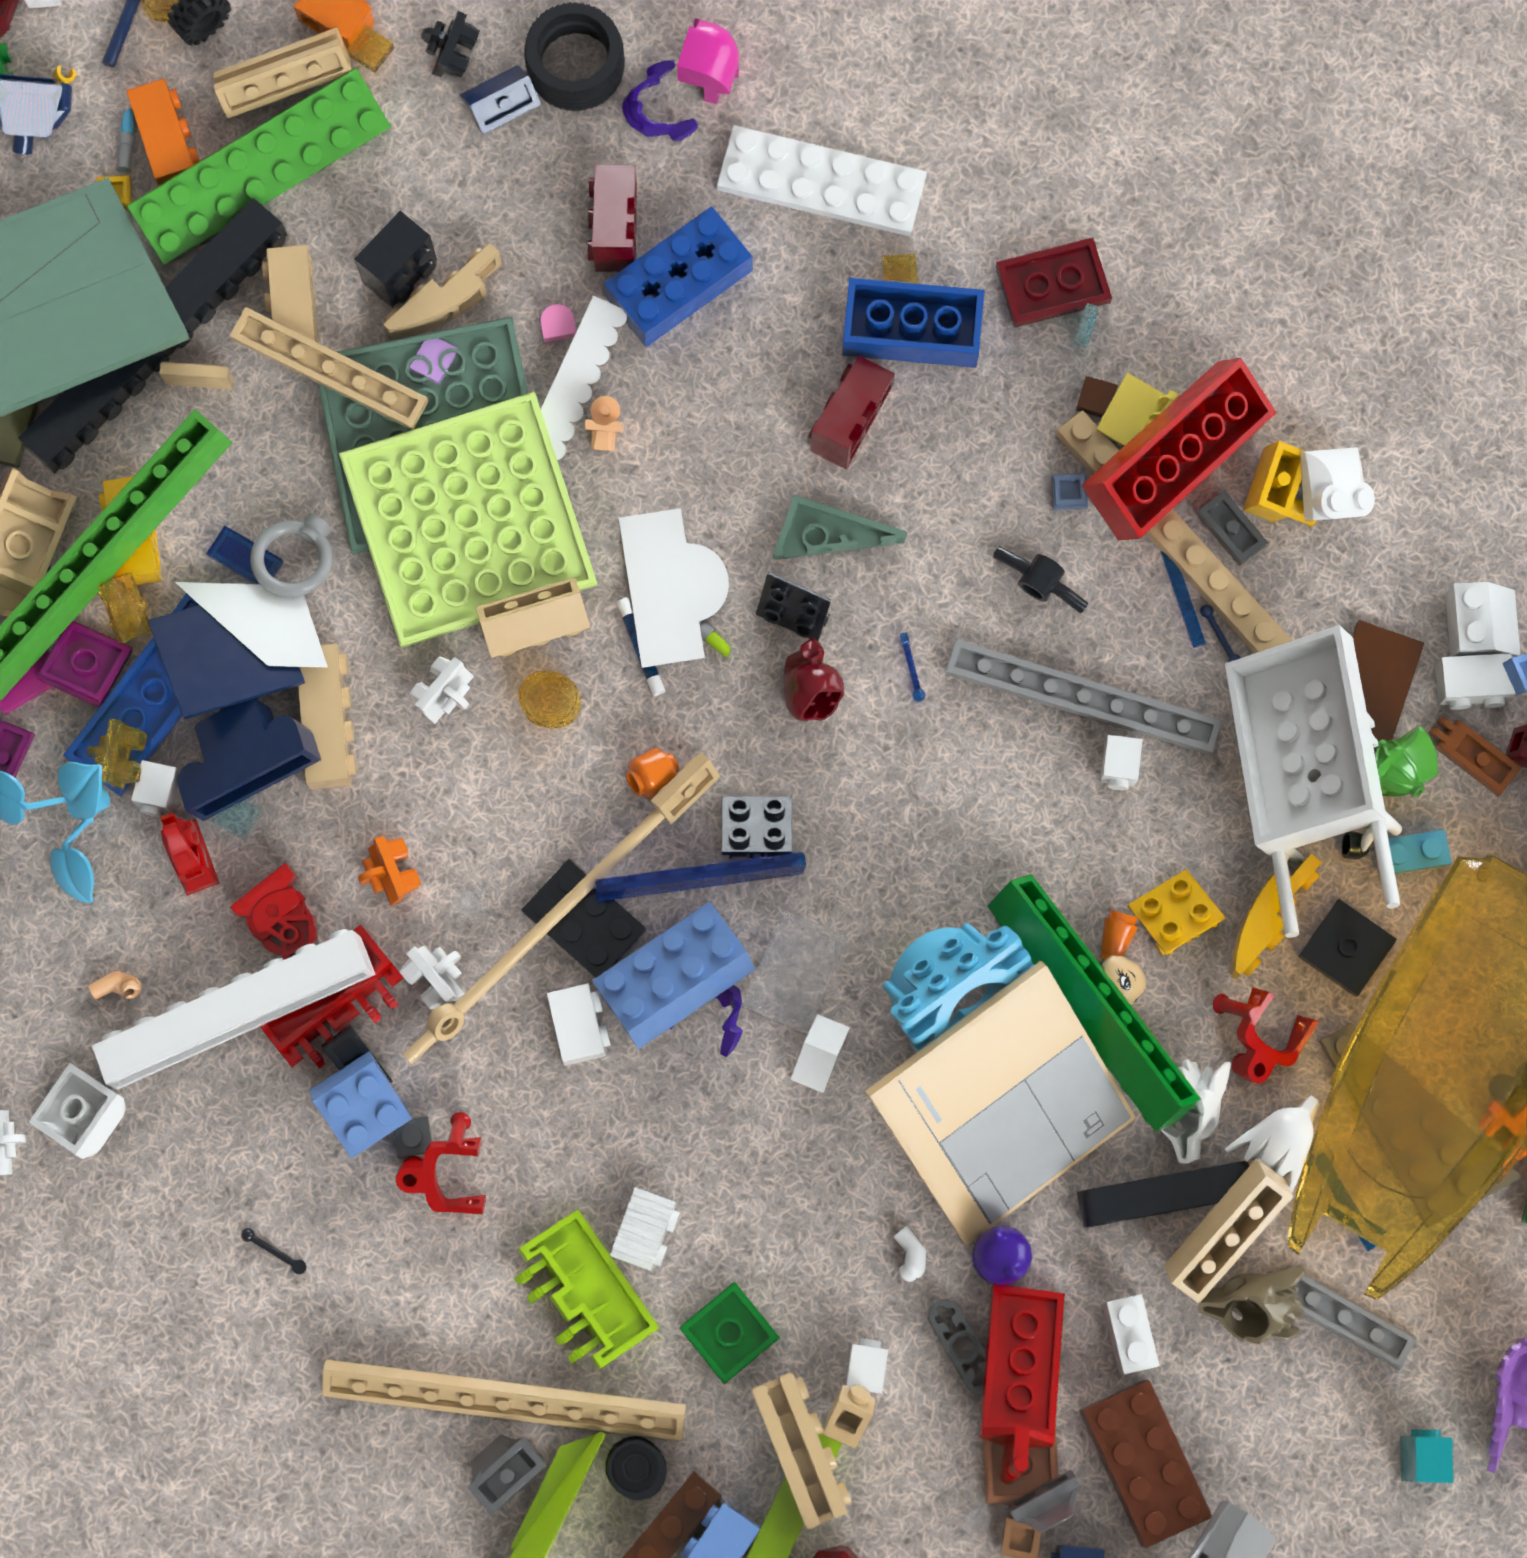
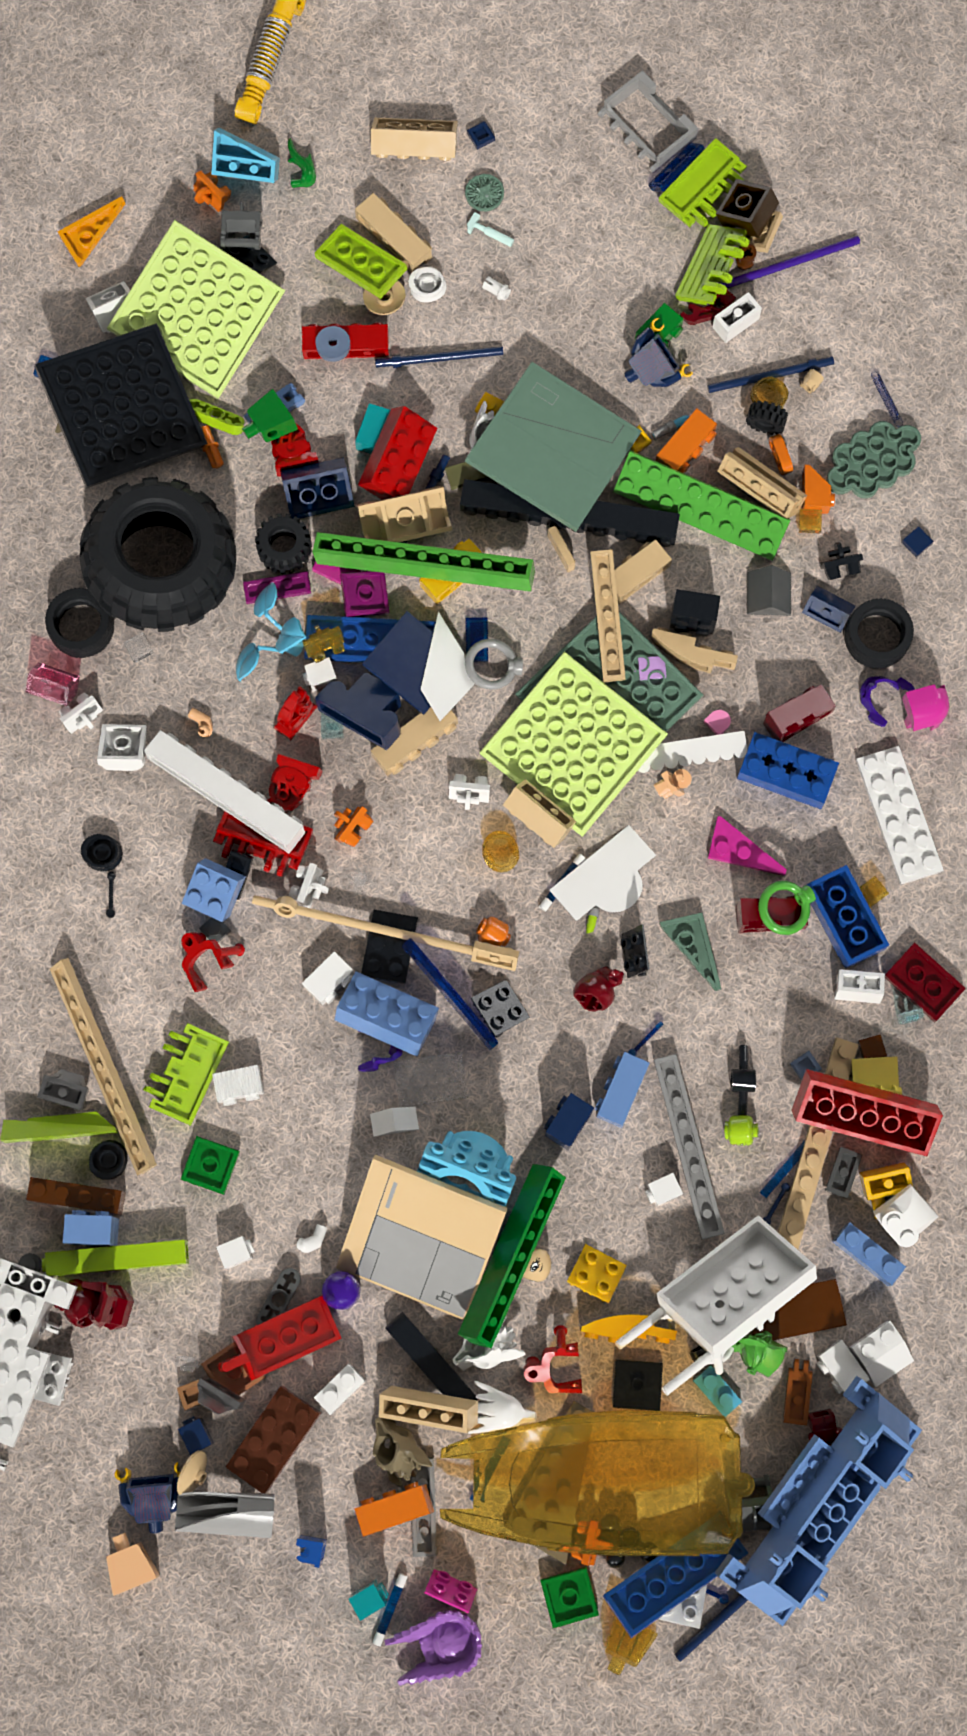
camera: 60 degrees right, 0 degrees up
(124, 607) = (407, 594): clear yellow hips -> none
(207, 1228) = (101, 852): none -> black piece
(258, 29) = (780, 454): none -> orange beam
(428, 157) = (769, 591): none -> dark grey slope
(734, 405) = (735, 848): none -> dark pink wing
(800, 1451) = (165, 1241): tan brick -> none
(850, 1408) = (207, 1257): tan brick -> none
(857, 354) = (803, 896): none -> bright green piece
(959, 735) = (621, 1089): none -> medium blue brick
(961, 825) = (569, 1120): none -> dark blue brick
(1010, 361) = (859, 986): none -> white hinge
(1103, 619) = (741, 1130): none -> lime head
(1117, 934) = (563, 1247): orange cone -> none
(1320, 1491) = (313, 1550): none -> blue hinge
(1327, 1356) = (394, 1508): none -> orange brick
(1353, 560) = (869, 1254): none -> medium blue brick
(1459, 1452) = (389, 1610): none -> clear blue bar
(1474, 1344) = (451, 1590): none -> dark pink hinge

